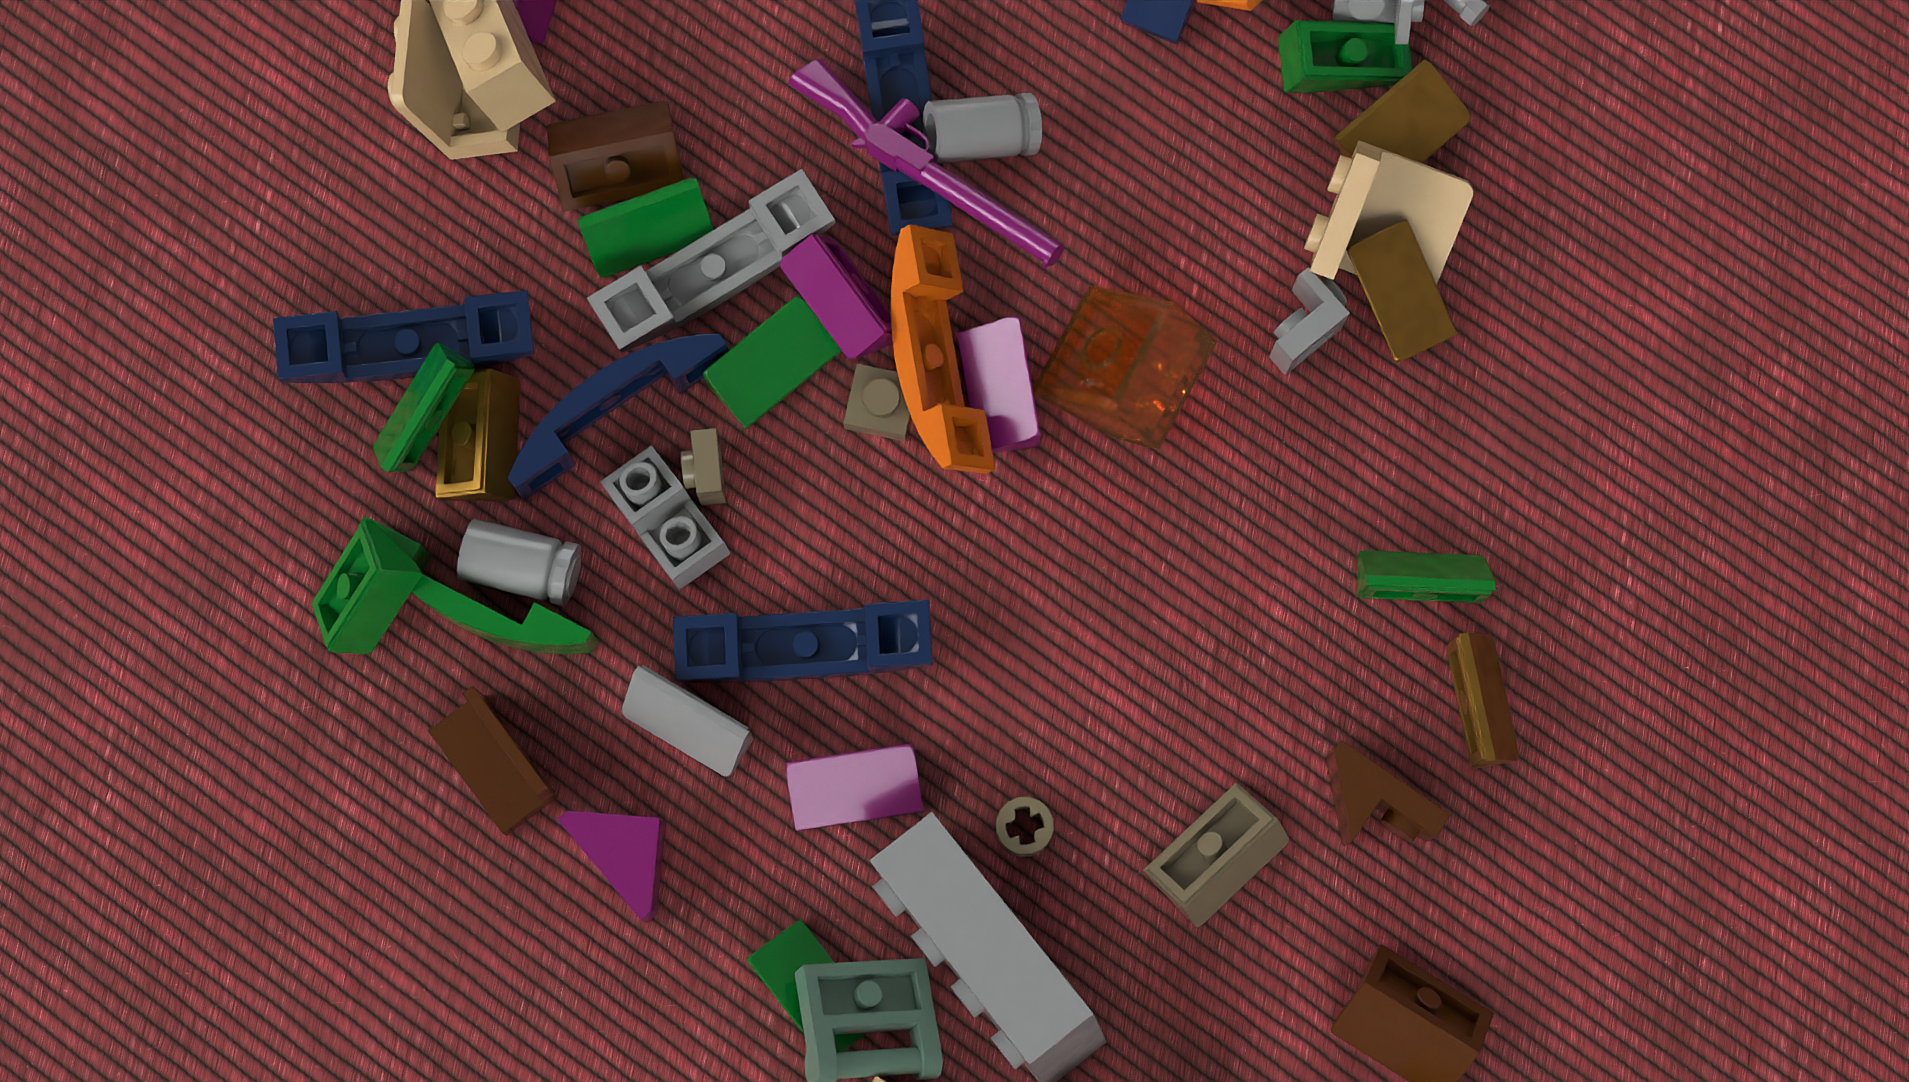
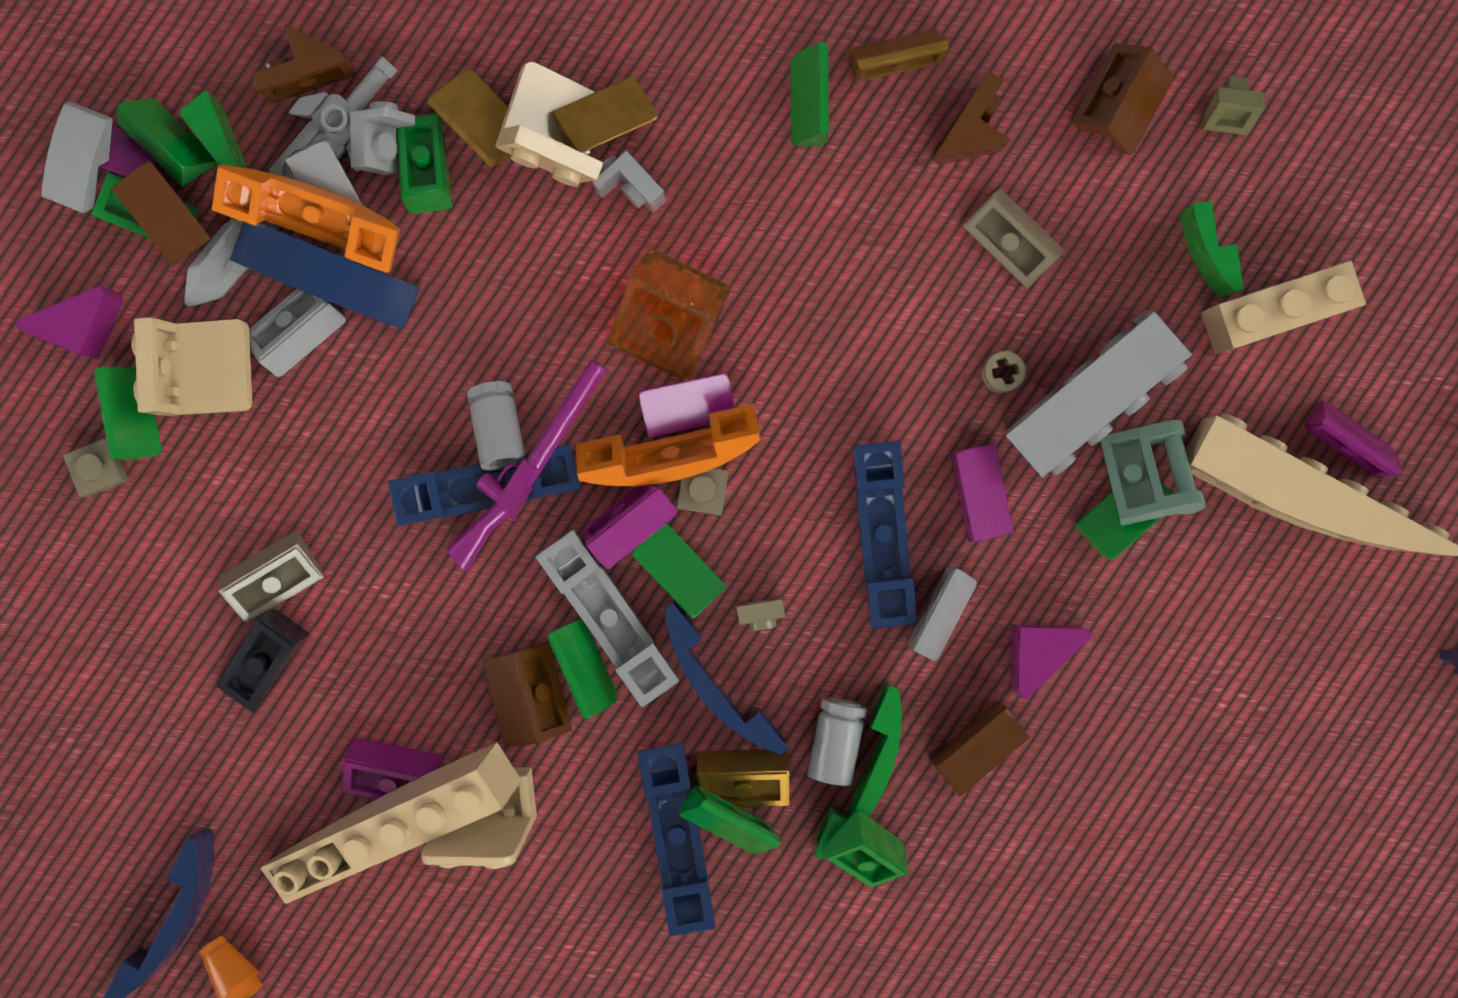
camera: 90 degrees left, 10 degrees up
(665, 517) = (796, 639): light grey slope -> none

